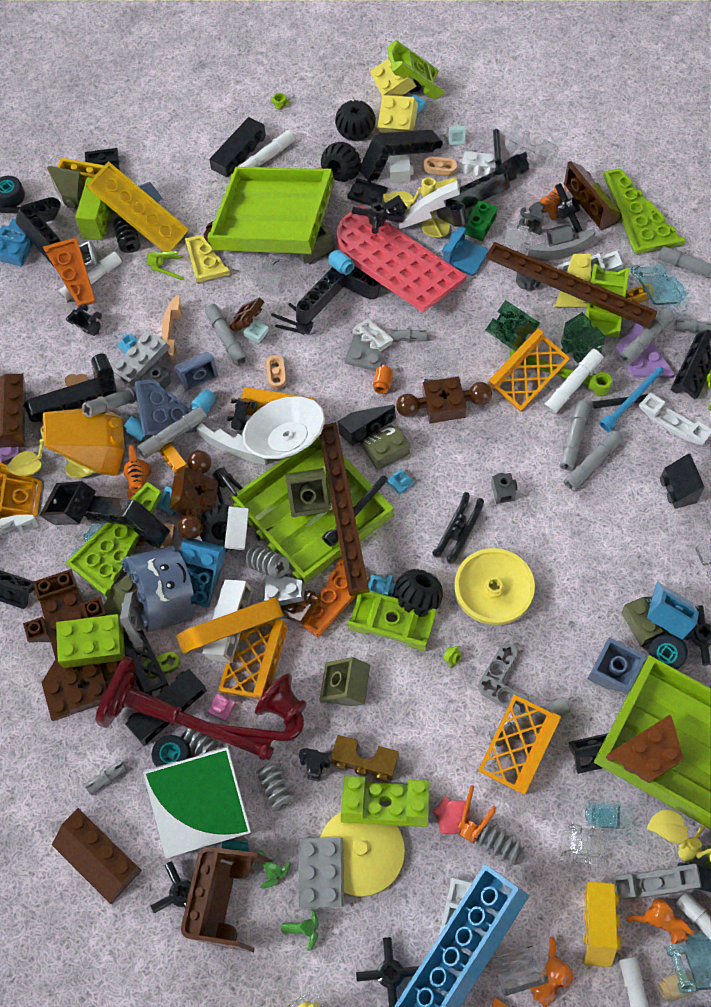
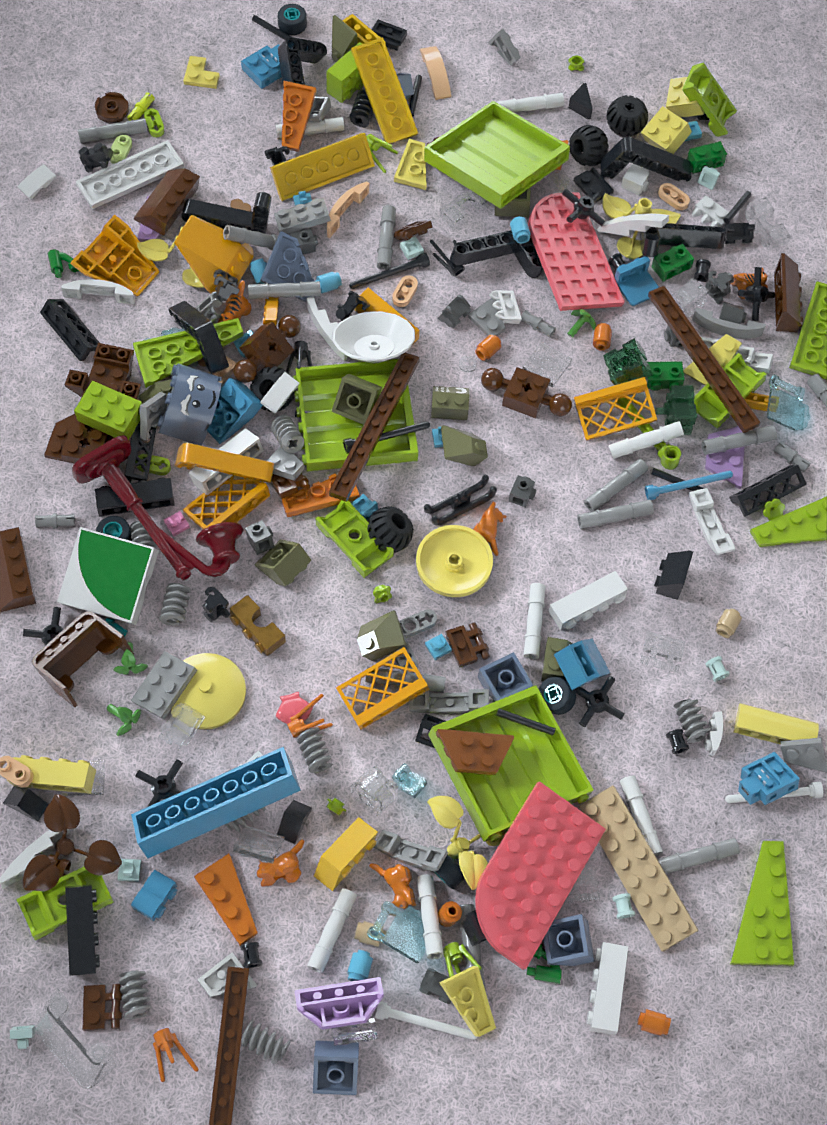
camera: 25 degrees right, 0 degrees up
(62, 513) = (160, 303): black window -> none
(114, 485) = (210, 307): none -> light grey piece
(116, 459) = (224, 285): none -> black piece
(126, 304) = (322, 166): none -> yellow plate
(163, 202) = (414, 97): none -> black bar
(167, 169) = (436, 72): none -> light nougat slope
(196, 370) = (340, 253): sand blue slope -> none
(212, 117) = (507, 49): none -> light grey wing
(237, 147) = (510, 84): black brick -> none
(272, 337) = (421, 261): none -> black piece
(308, 672) = (260, 537): none -> dark grey brick
(309, 130) = (581, 102): none -> black slope
(332, 362) = (453, 311): none -> dark grey piece
(363, 423) = (447, 373): black slope -> none
(363, 799) = (232, 654): lime piece -> none
(367, 903) = (181, 726): none -> clear brick
(396, 206) = (604, 209): black plate -> none
(427, 478) = (463, 446): none -> olive slope
(436, 246) = (616, 260): none -> black bush
(443, 118) = (707, 155): none -> green brick
(444, 306) = (584, 317): none -> bright green plant
(470, 315) = (602, 336): none -> orange brick
(481, 695) = (381, 636): none -> olive slope
(498, 535) = (488, 526): none -> orange animal
(508, 213) = (702, 270): none -> black bush
(531, 925) = (293, 821): none -> black slope
(534, 673) = (438, 647): none -> medium azure tile
(549, 315) = (665, 375): none -> green brick
(554, 659) = (462, 647): none -> reddish brown plate
(556, 883) = (336, 806): none -> lime plate
(586, 716) = (450, 702): none -> light grey slope
(598, 597) = (534, 621): none -> white piece
(628, 551) = (588, 600): none -> white brick
(667, 694) = (525, 721): none -> black bar

